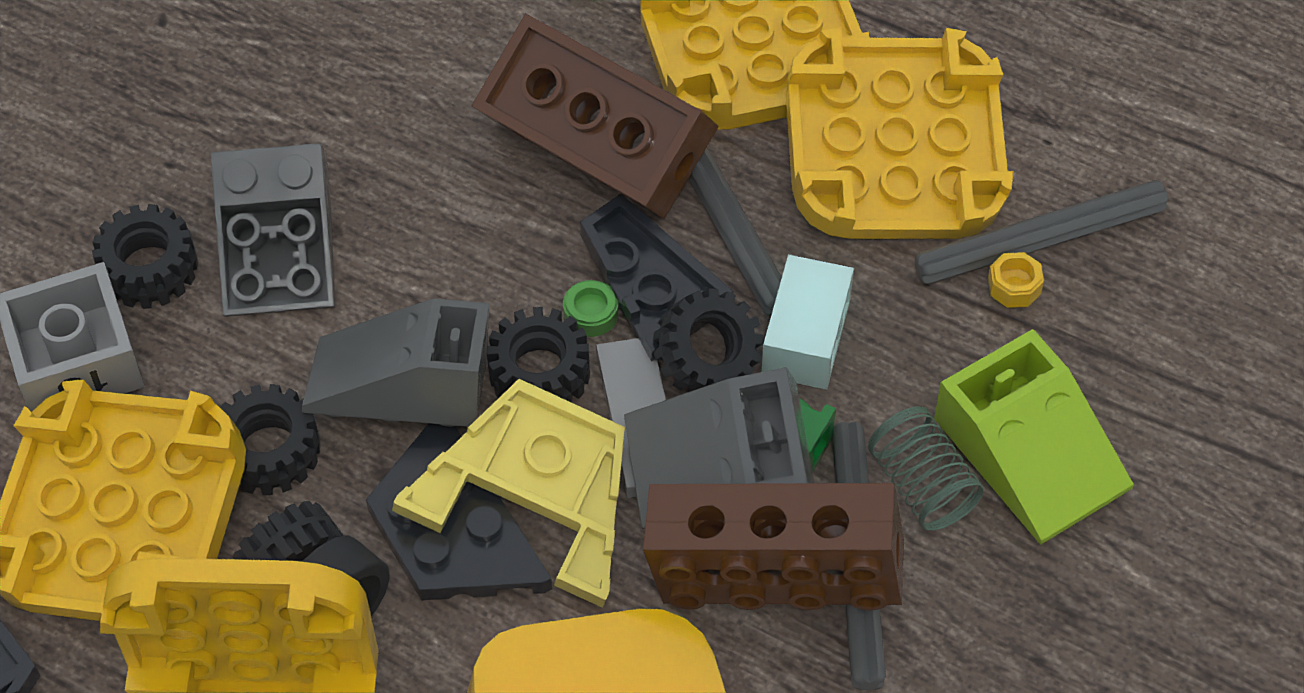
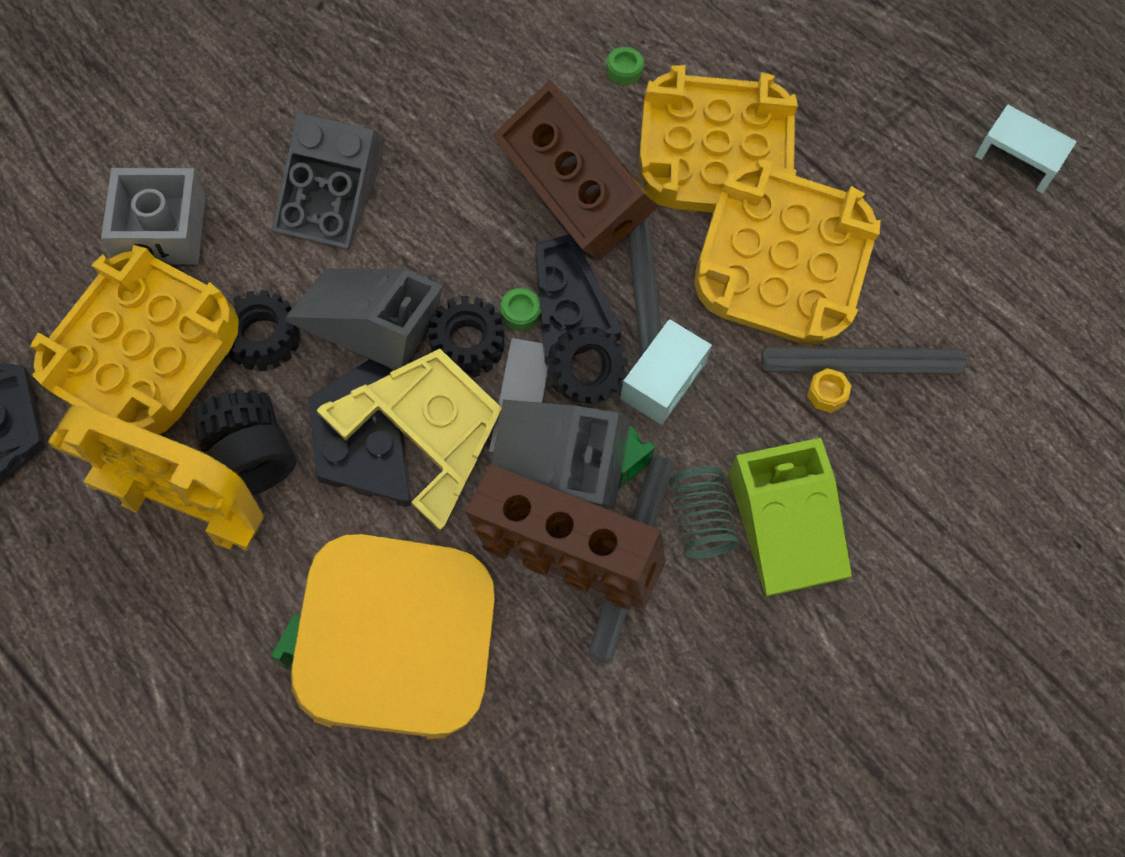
camera: 15 degrees right, 10 degrees up
(140, 231) = (233, 152): black tyre -> none

